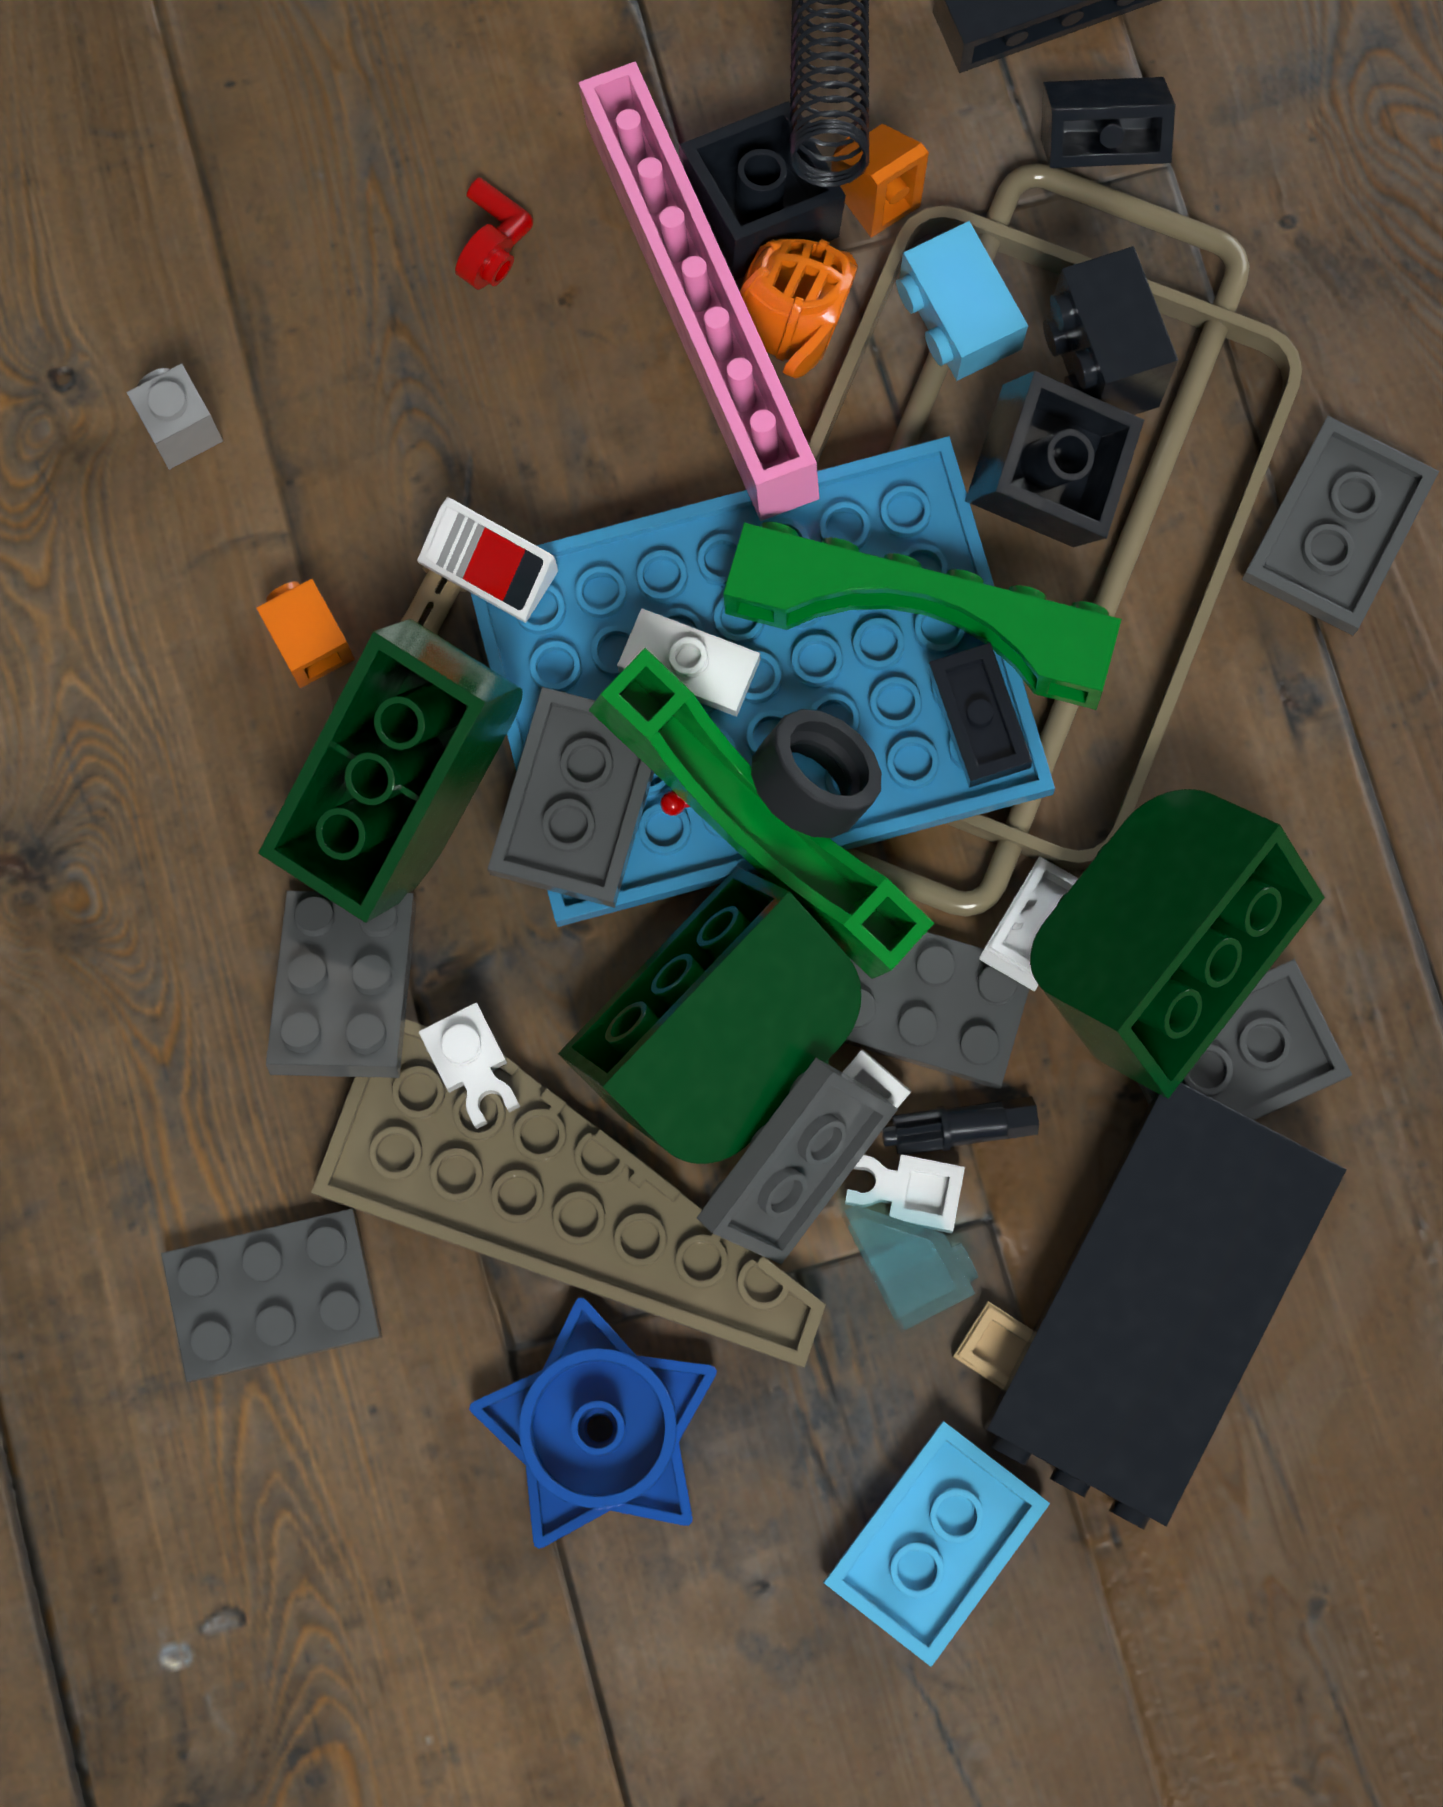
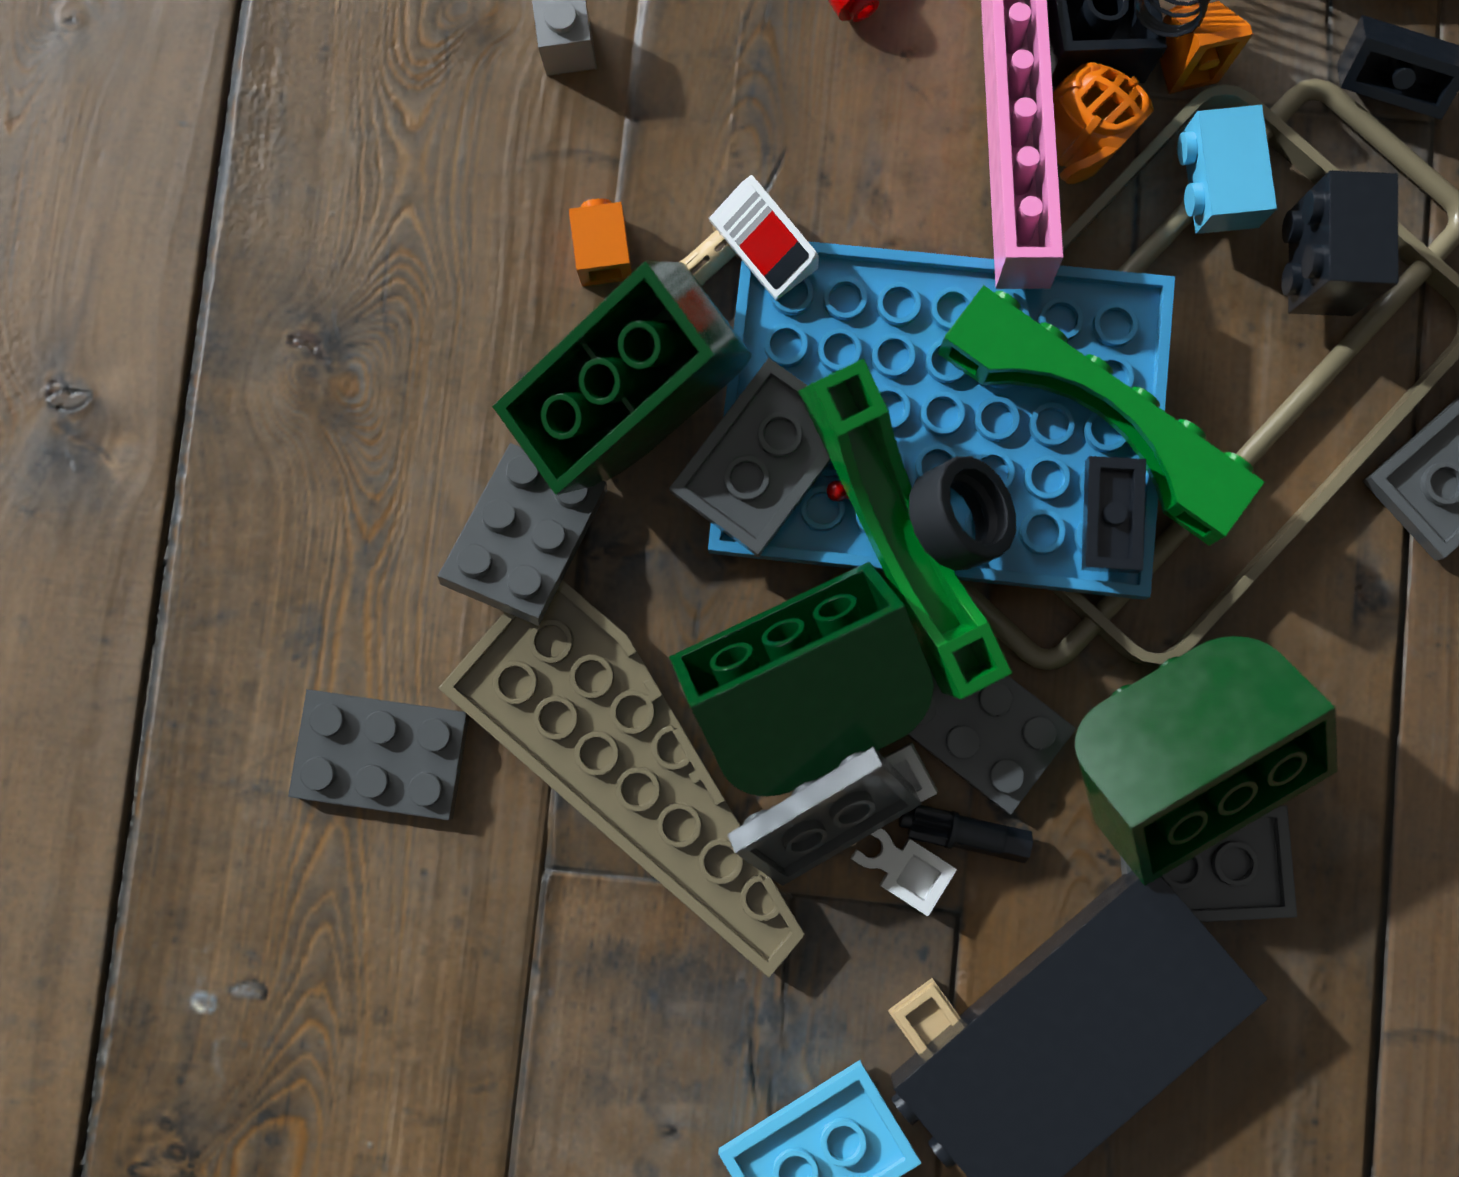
camera: 25 degrees right, 5 degrees up
(467, 1056) = (598, 627): white plate -> none
(548, 1418) = (563, 993): blue plate -> none
(706, 664) = (906, 388): white plate -> none
(911, 1265) = (884, 933): clear light blue slope -> none
(1013, 939) = (1082, 691): white plate -> none
(1054, 460) = (1256, 327): black brick -> none

